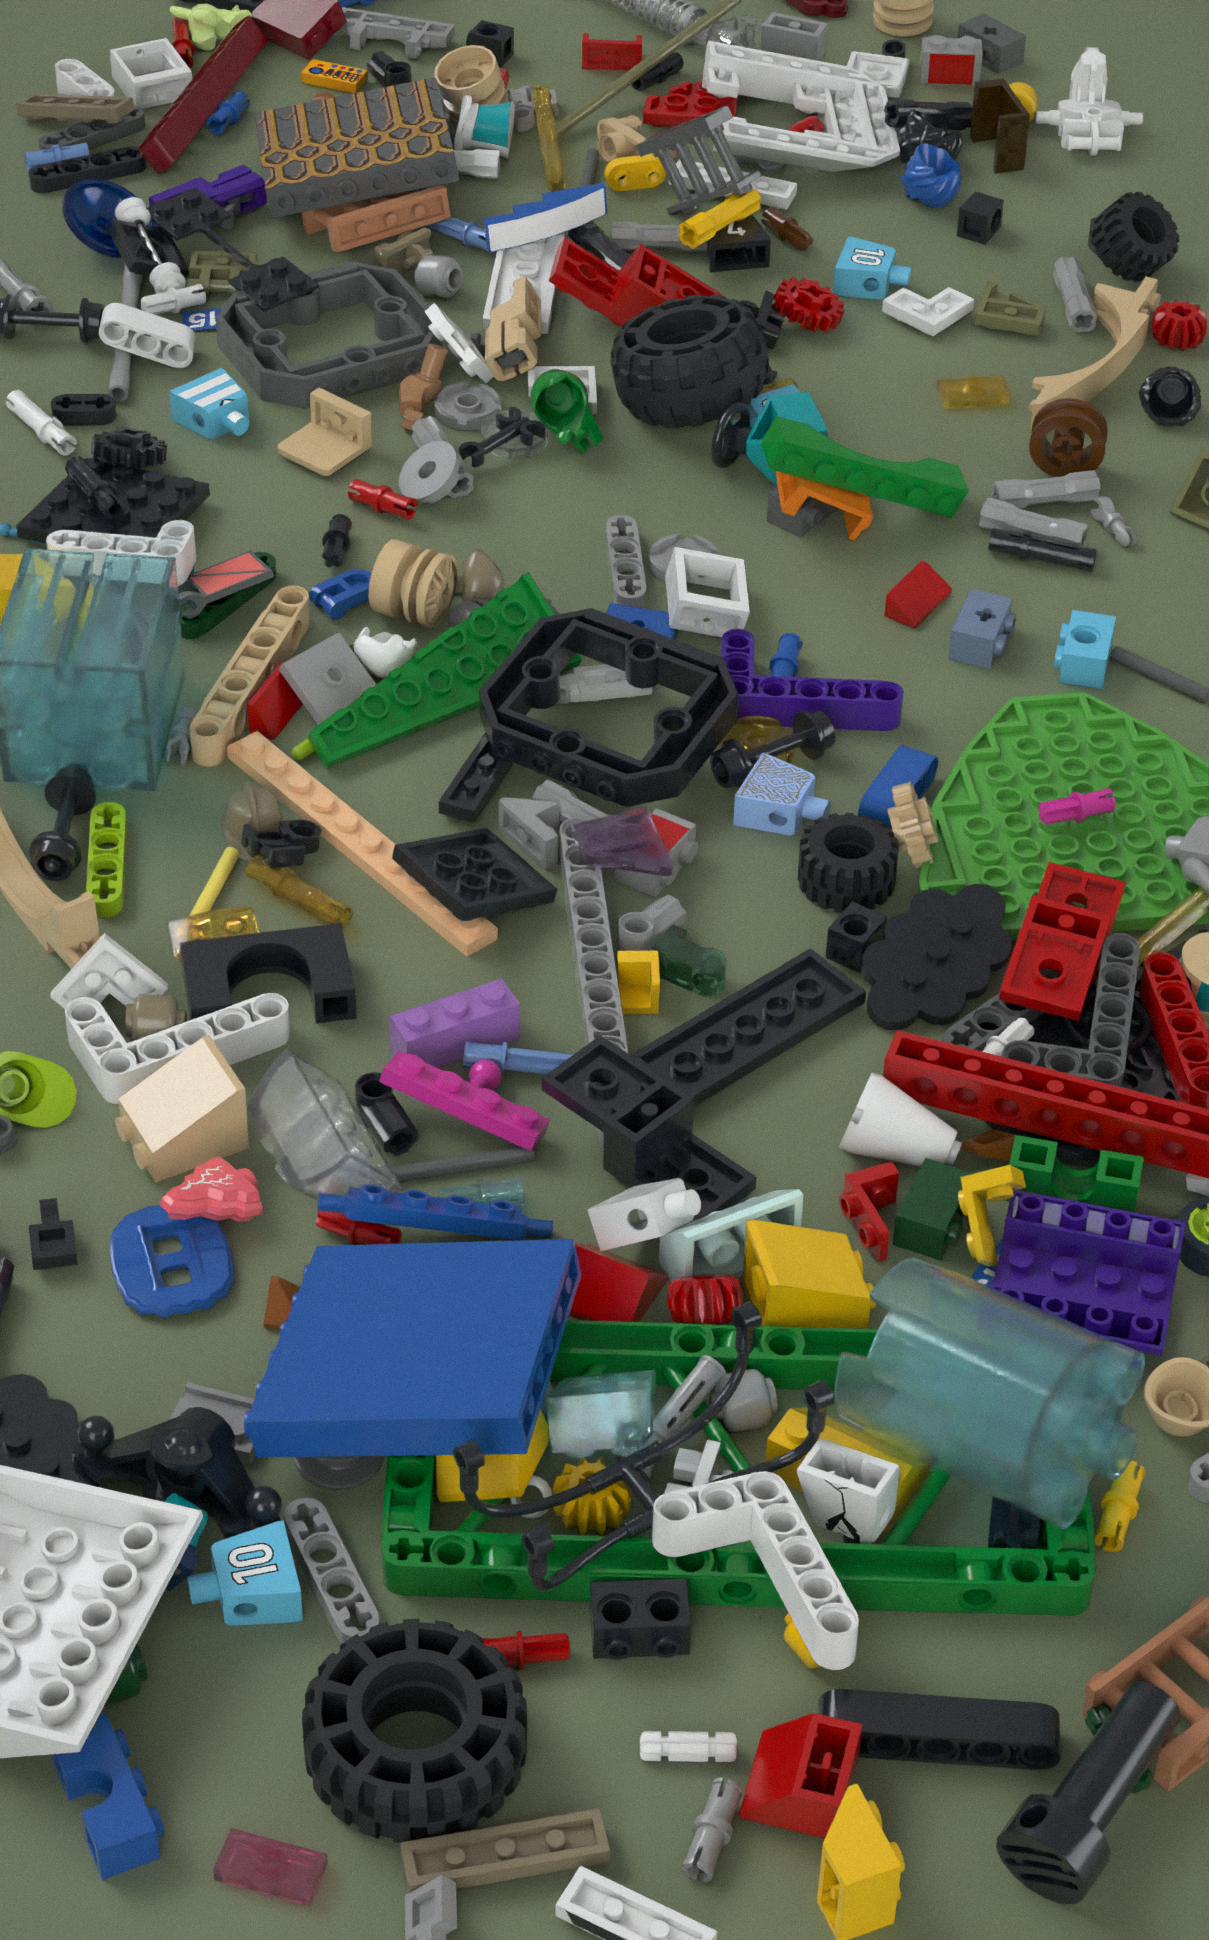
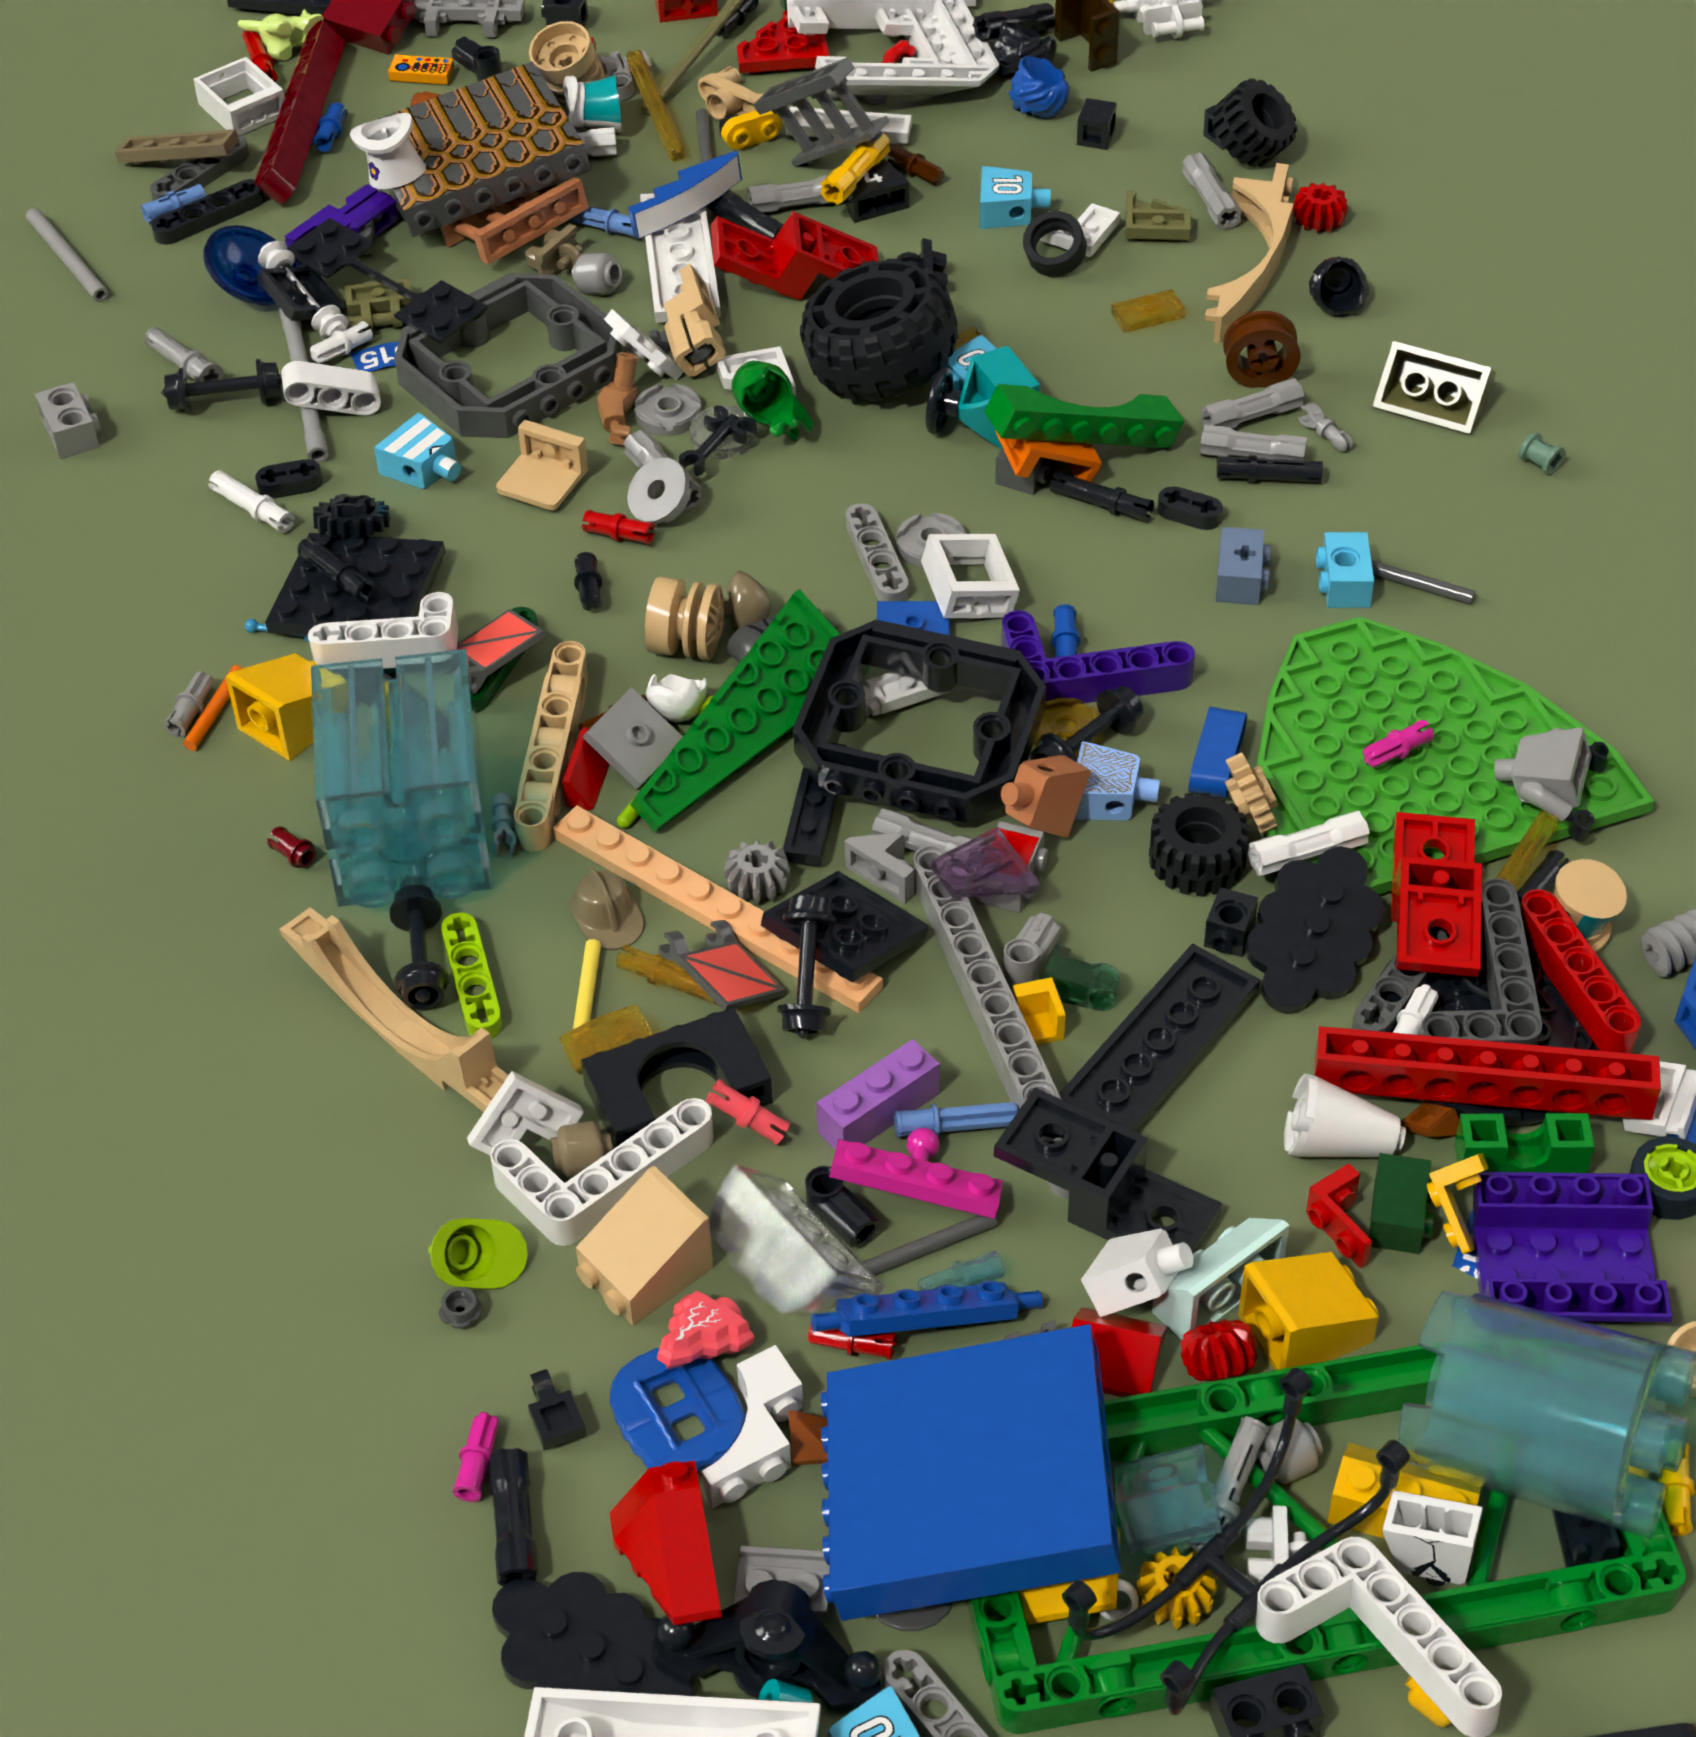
camera: 10 degrees left, 5 degrees up
(78, 79) = (171, 117): white beam -> none
(120, 1357) = (667, 1541): none -> red wedge
(234, 1302) = (761, 1447): none -> white arch
(266, 133) = (389, 151): none -> white hat
(283, 846) = (641, 928): black piece -> none
(323, 1016) = (747, 1112): none -> coral pin
(341, 592) = (621, 628): blue plate -> none
(345, 894) = (723, 968): none -> flag
(407, 944) = (809, 913): none -> black piece
(408, 814) = (757, 871): none -> light grey gear
(707, 790) = (1046, 793): none -> nougat torso
(809, 304) = (965, 244): red gear -> none
(877, 552) = (1114, 500): none -> black pin
(890, 297) = (1045, 224): none -> black tyre
(916, 595) = (1167, 540): red slope -> none
(956, 571) = (1190, 508): none -> black beam
(991, 871) = (1276, 851): none -> white axle

